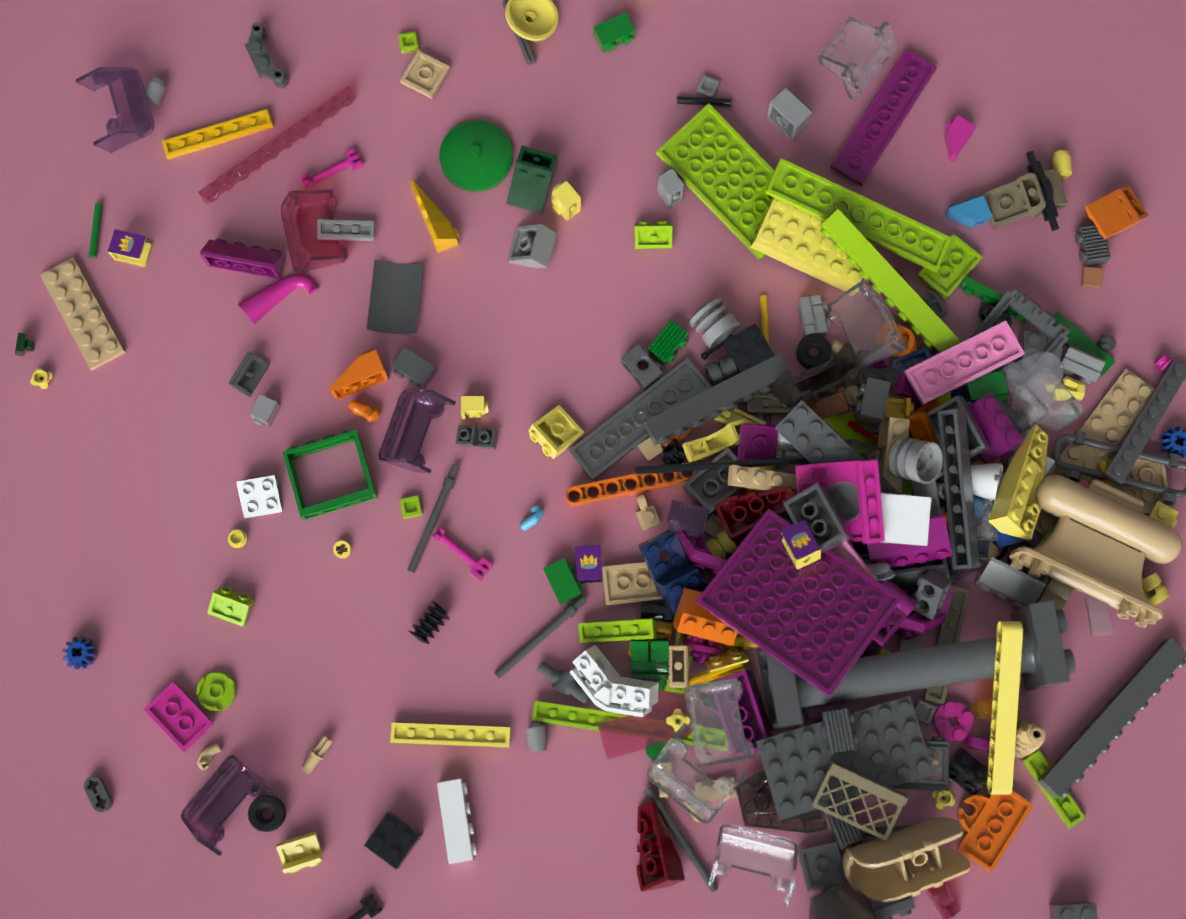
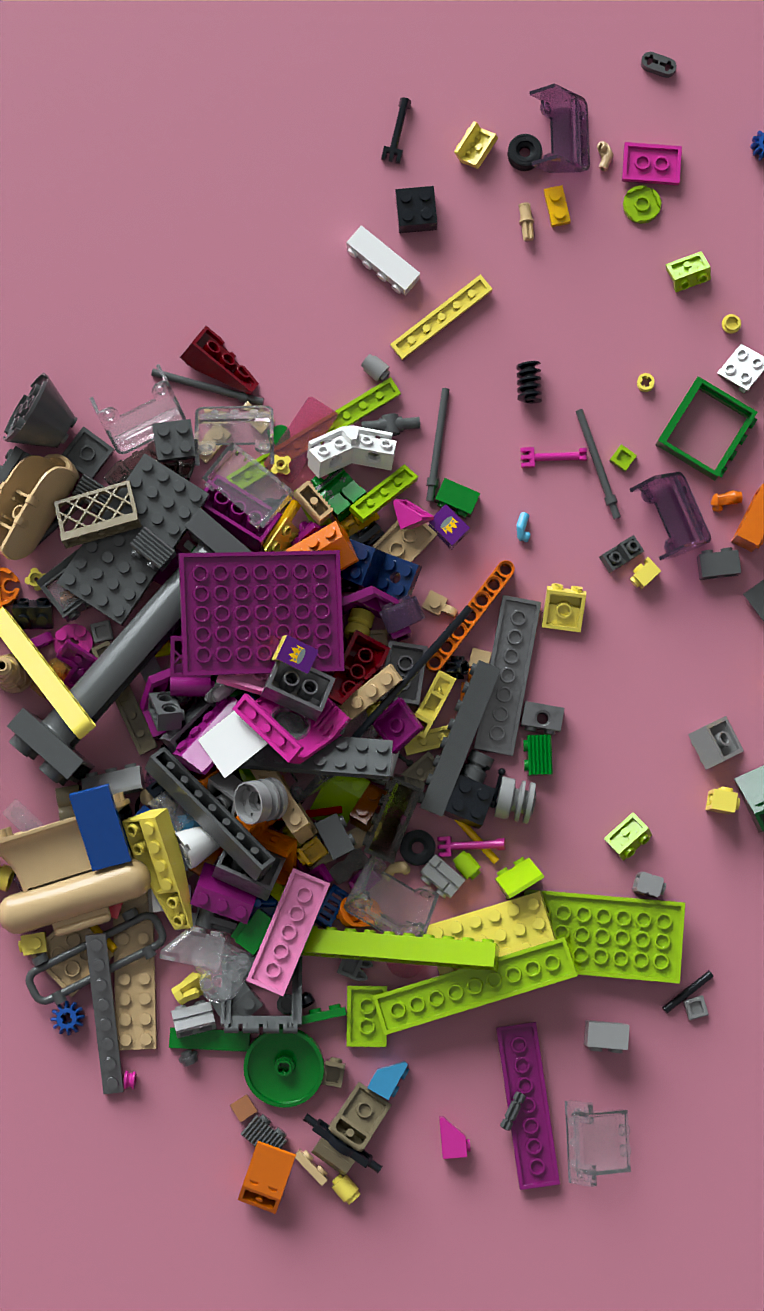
camera: 140 degrees right, 5 degrees up
(281, 747) = (556, 206): none -> yellow plate
(611, 595) = (410, 515): none -> dark pink slope
(746, 813) = (173, 440): none -> dark grey plate
(760, 265) = (518, 878): none -> lime slope
(788, 309) = (467, 865): none -> lime brick
(789, 334) = (499, 843): none -> dark pink hinge
(899, 119) = (512, 1111): none -> dark grey axle
(962, 697) = (78, 659): none -> magenta plate
(1006, 247) = (333, 1072): none -> dark tan bracket
(1043, 276) = (284, 1068): none -> green dish
(1053, 545) = (100, 827): none -> blue tile
(1073, 190) = (317, 1172): none -> tan plate

